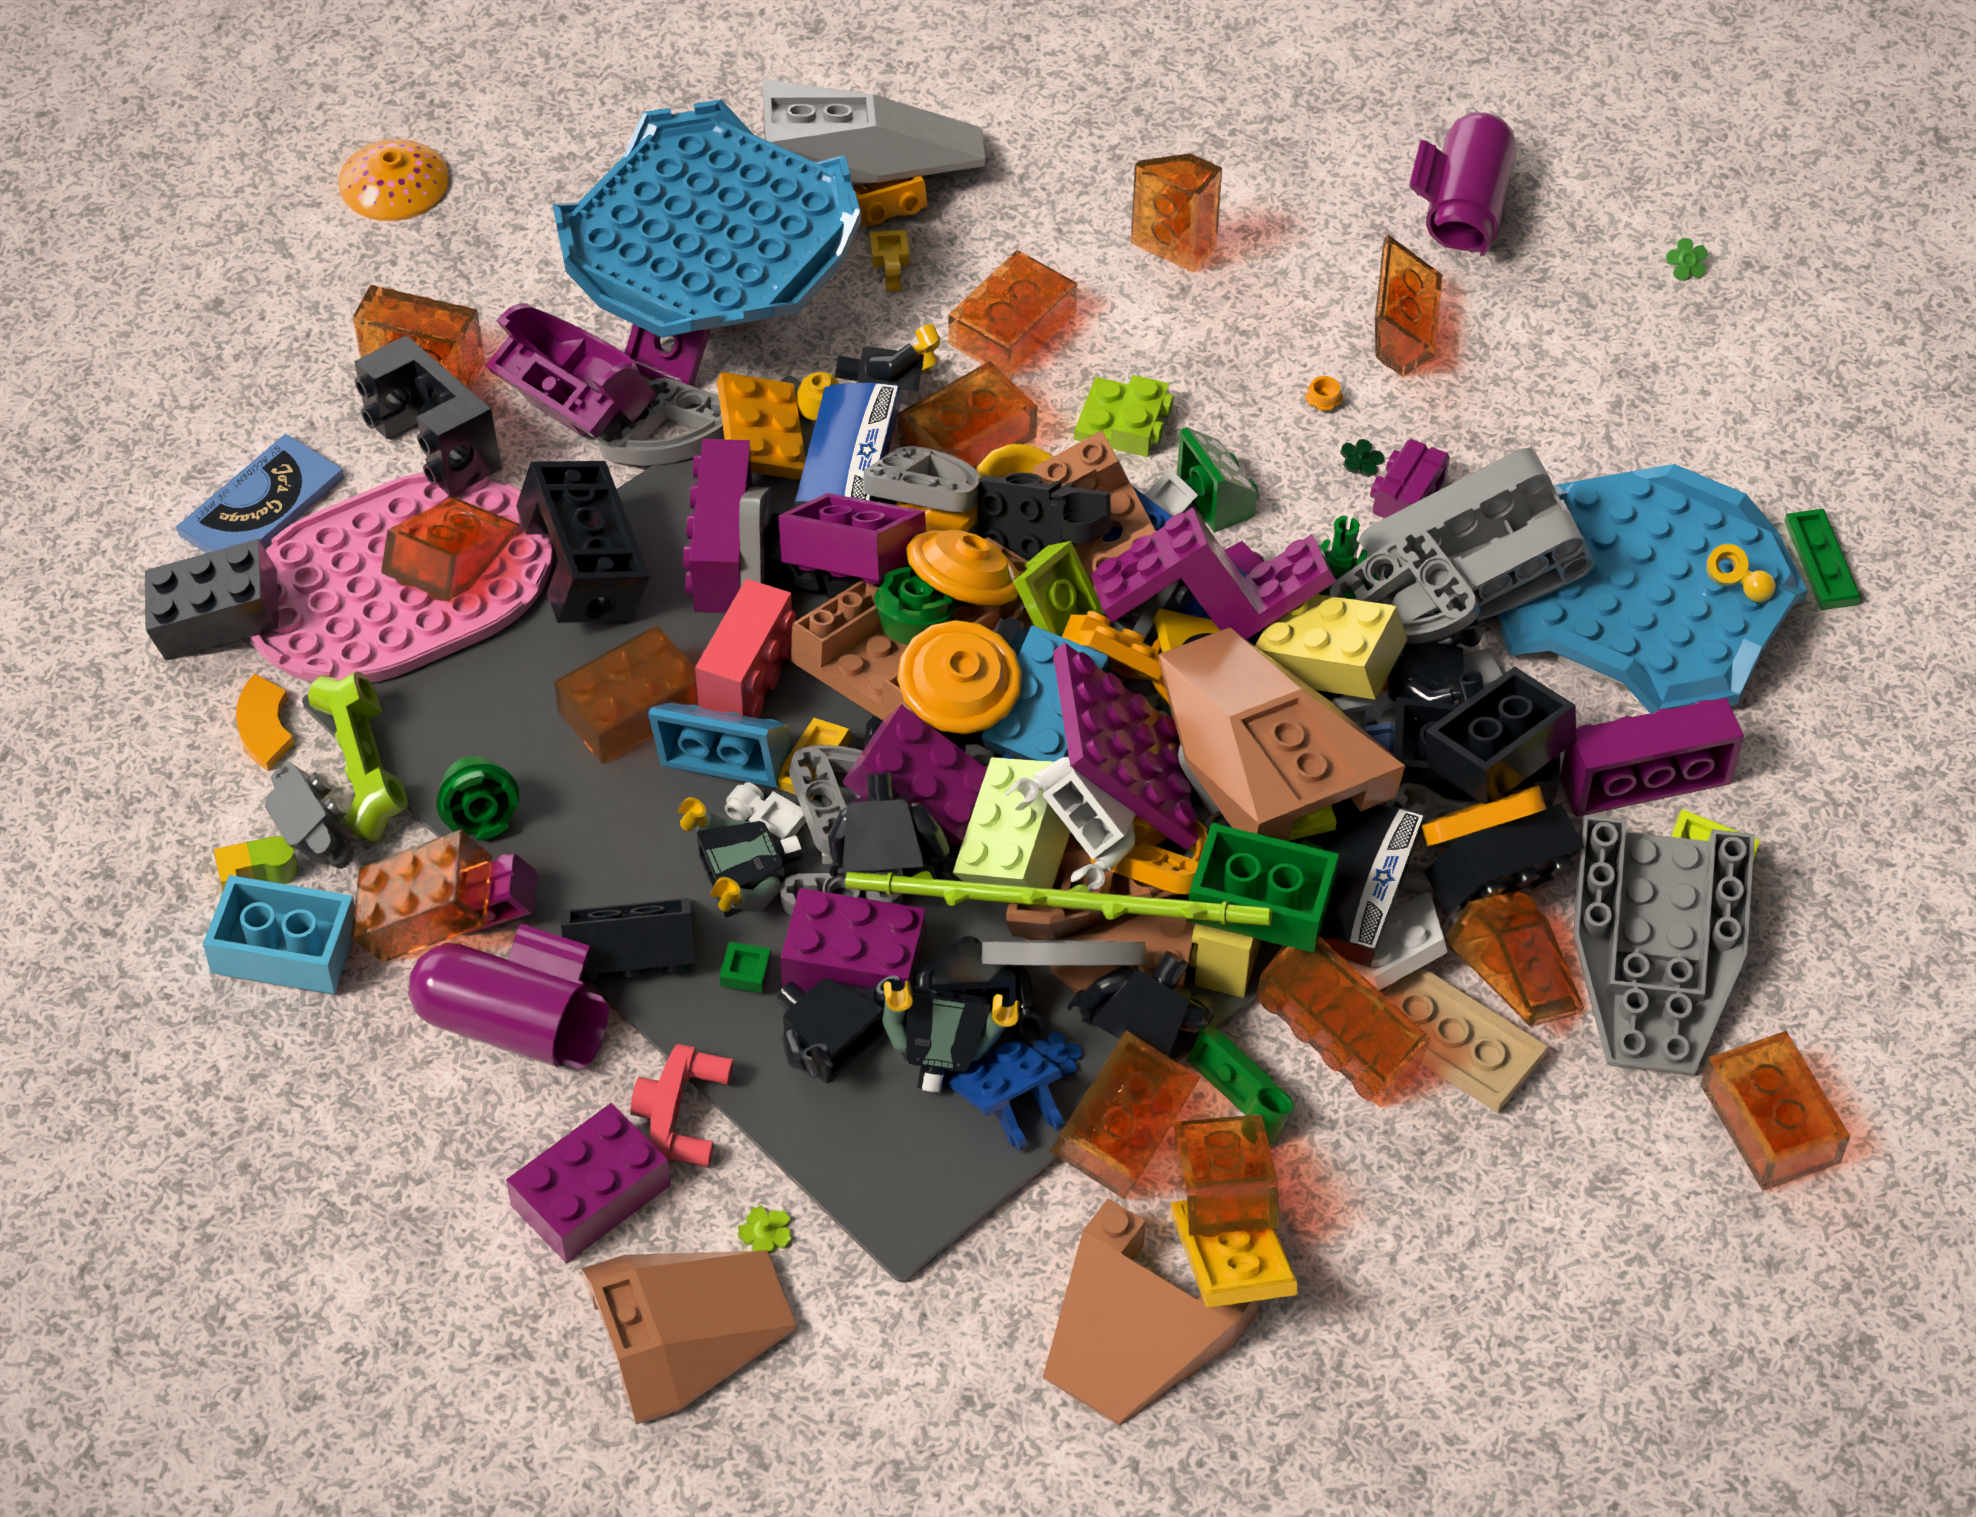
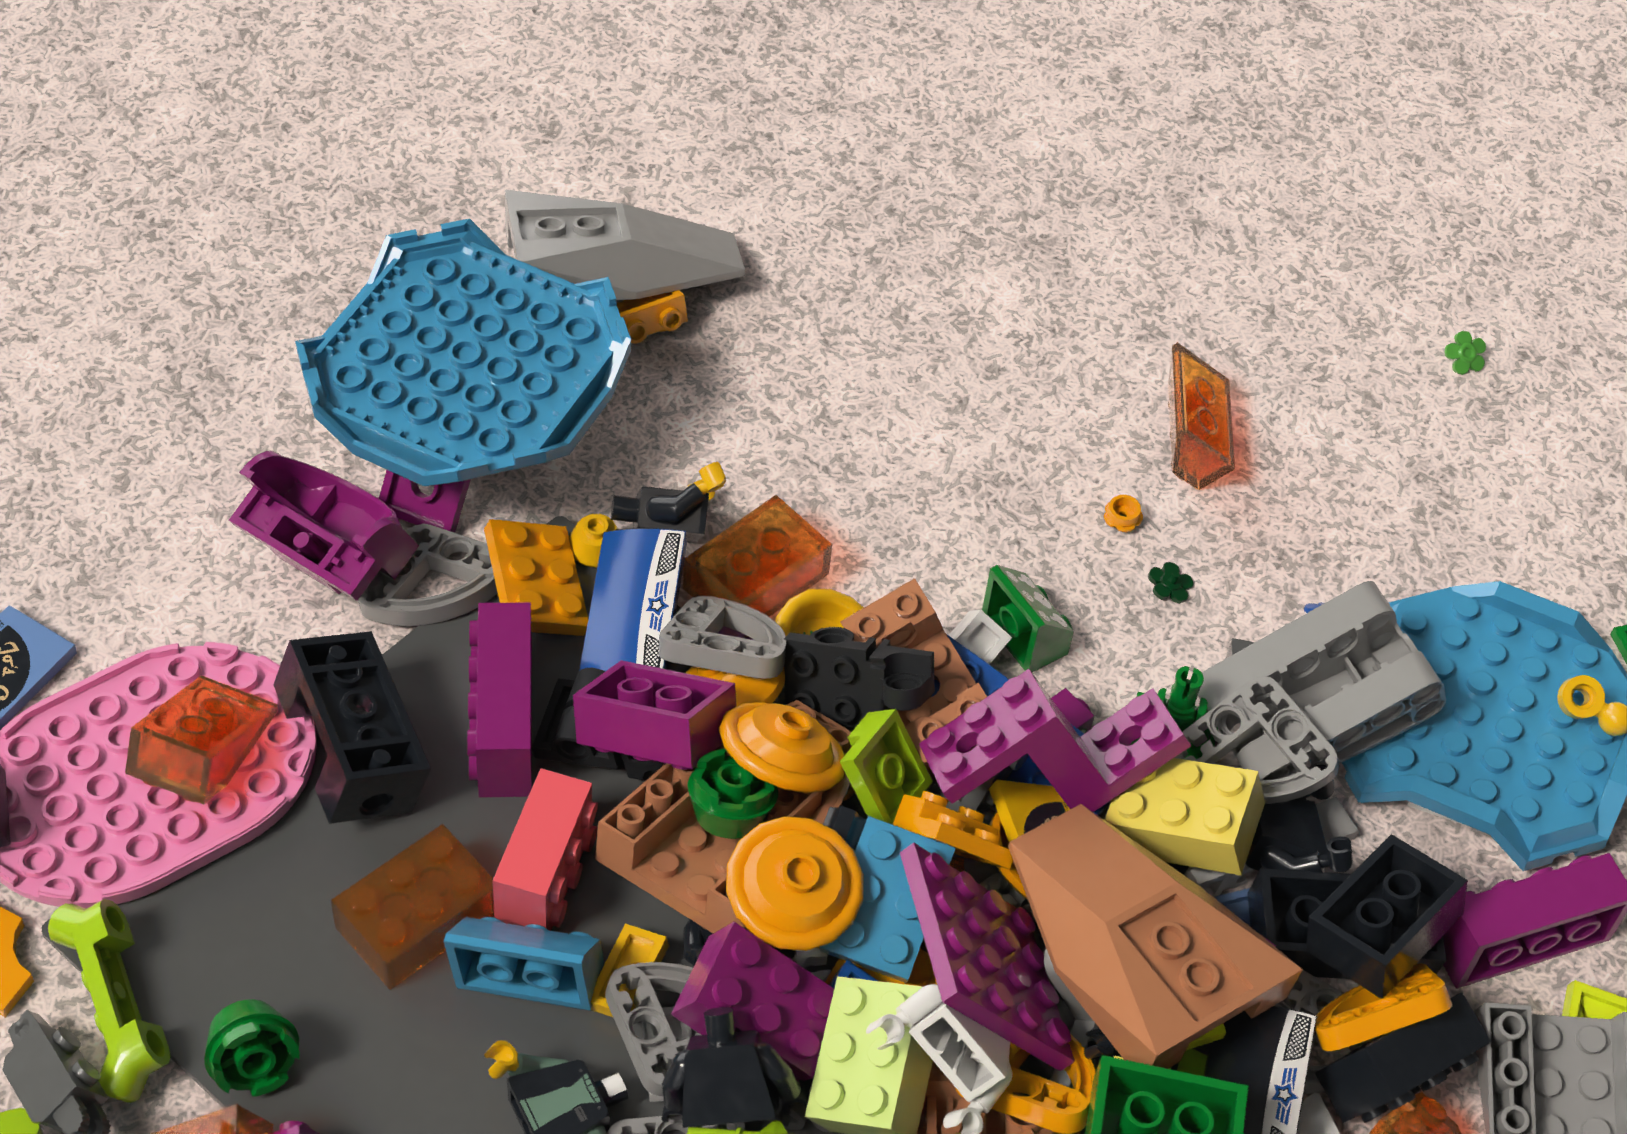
camera: 10 degrees left, 0 degrees up
(393, 180) = (115, 309): light orange dish -> none
(410, 388) = (202, 598): black plate -> none
(440, 328) = (153, 490): clear orange brick -> none
(754, 517) = (541, 704): light grey beam -> none
(778, 813) = (593, 1044): white plate -> none
(890, 251) = (653, 372): yellow plate -> none
(1012, 313) = (789, 437): clear orange brick -> none
(1126, 413) = (919, 545): lime plate -> none
(1176, 208) = (951, 318): clear orange slope -> none
(1409, 477) = (1228, 609): magenta brick -> none
(1466, 181) = (1240, 279): magenta piece -> none

